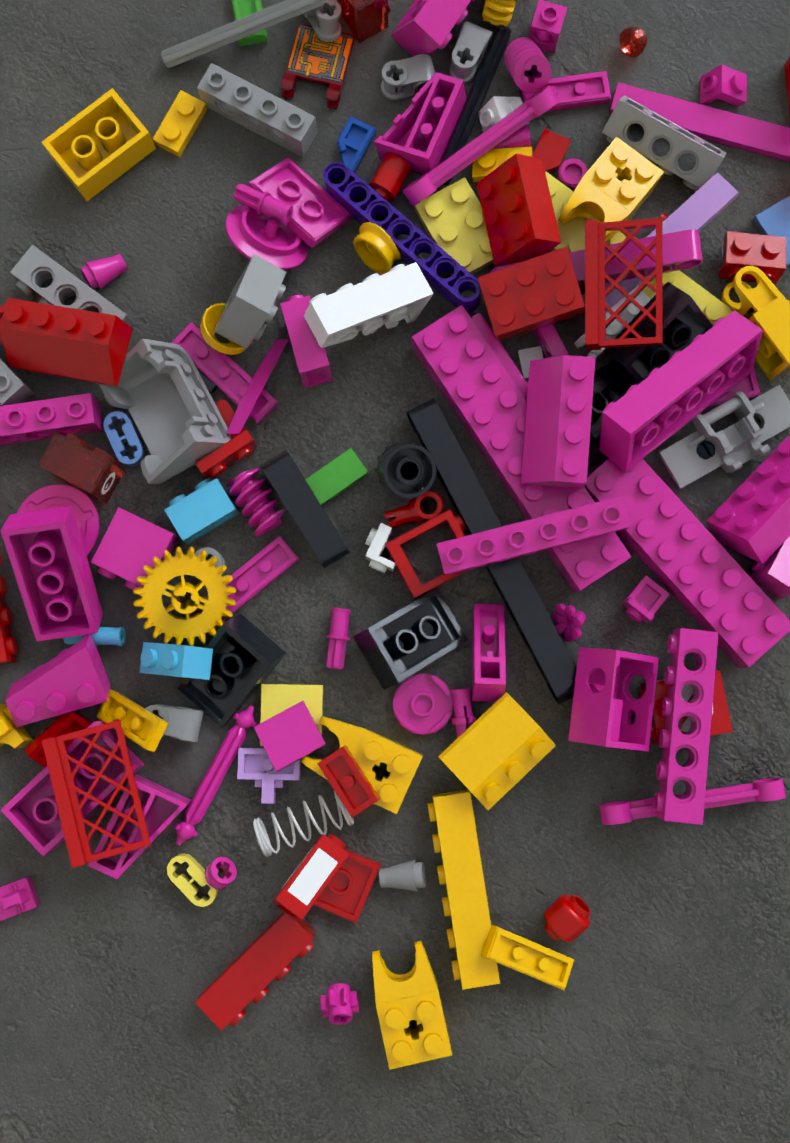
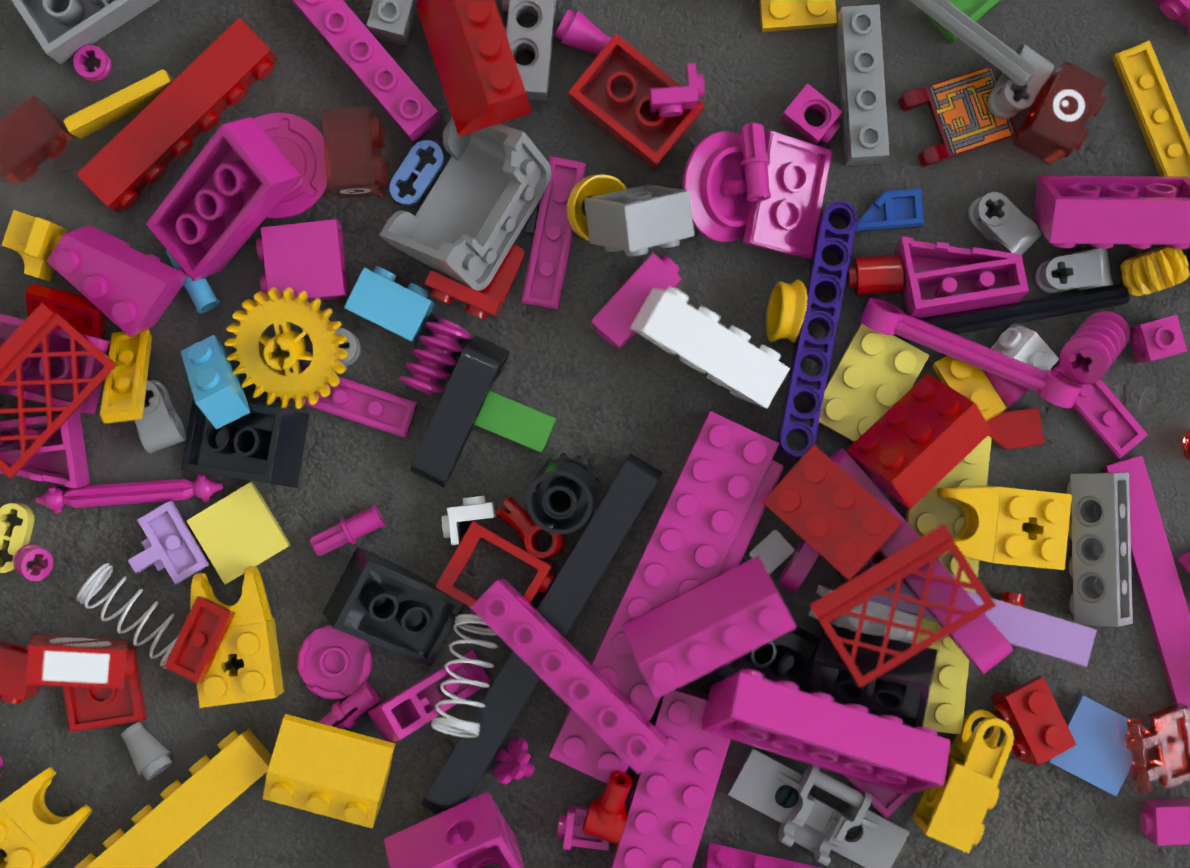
camera: 60 degrees right, 5 degrees up
(171, 261) = (616, 98): none -> red brick
(187, 225) = (673, 100): none -> dark pink bracket
(253, 144) = (808, 100): none -> dark pink brick
(256, 386) = (557, 278): dark pink sticker -> none
(289, 736) = (213, 547): dark pink piece -> none
(522, 631) = (467, 728): none -> white piece
(571, 173) = (1007, 468): dark pink tile -> none
(646, 575) = (608, 814): none -> red pin

